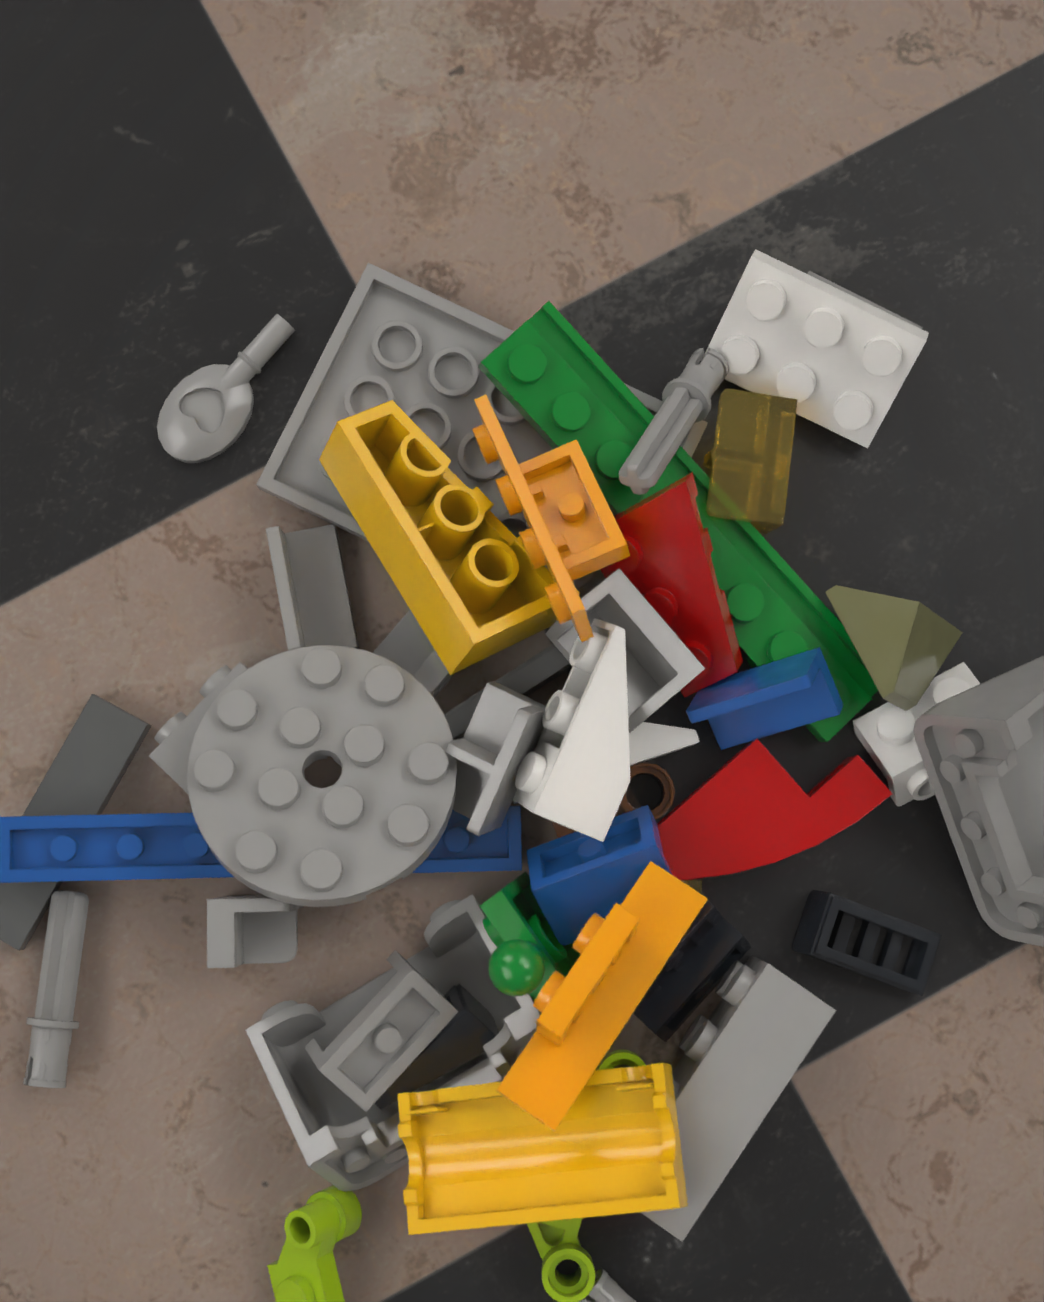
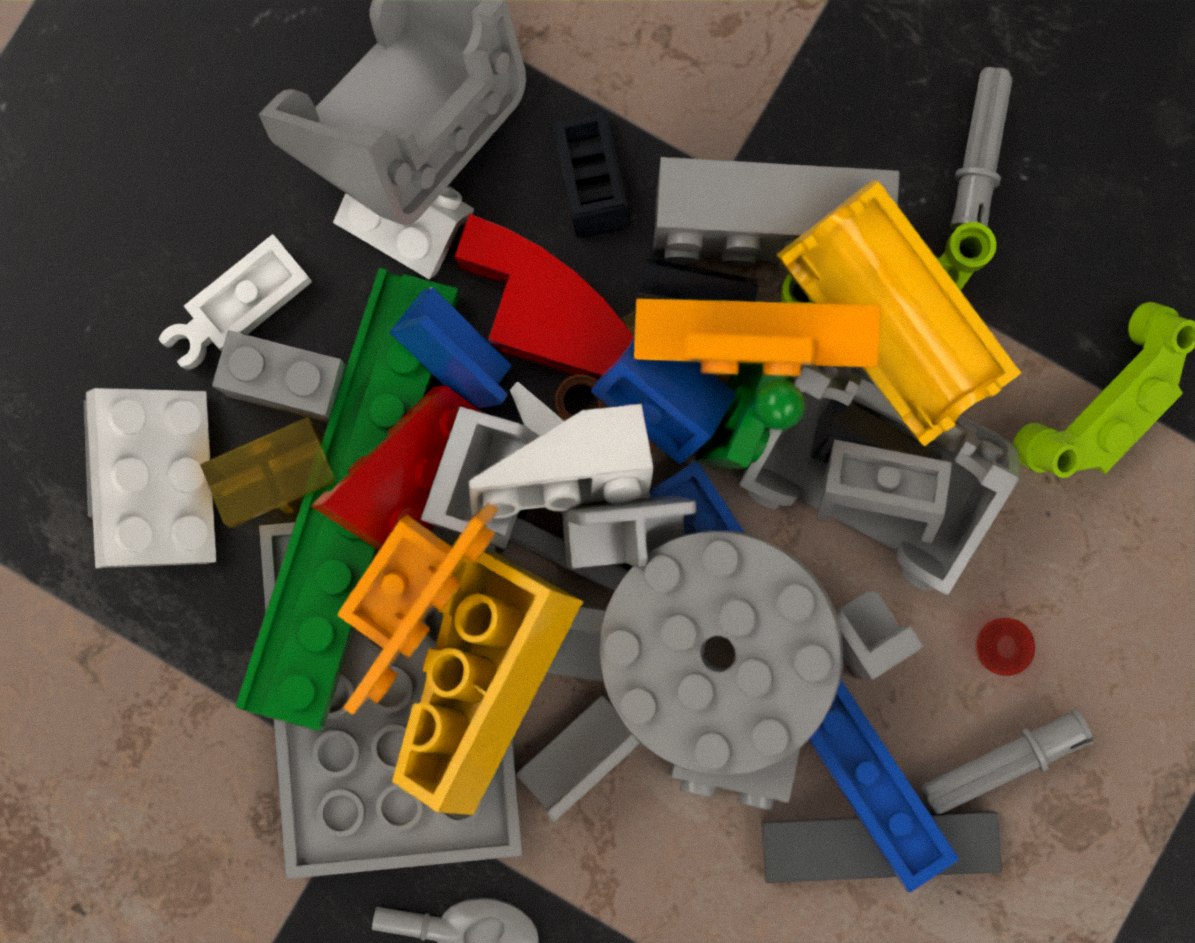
camera: 120 degrees left, 0 degrees up
(185, 1054) = (988, 652): none -> clear red plate
(684, 403) = (257, 549): light grey axle -> none
(840, 521) = (278, 376): none -> light grey brick
(896, 640) = (349, 279): olive slope -> none
(937, 528) = (238, 300): none -> white plate

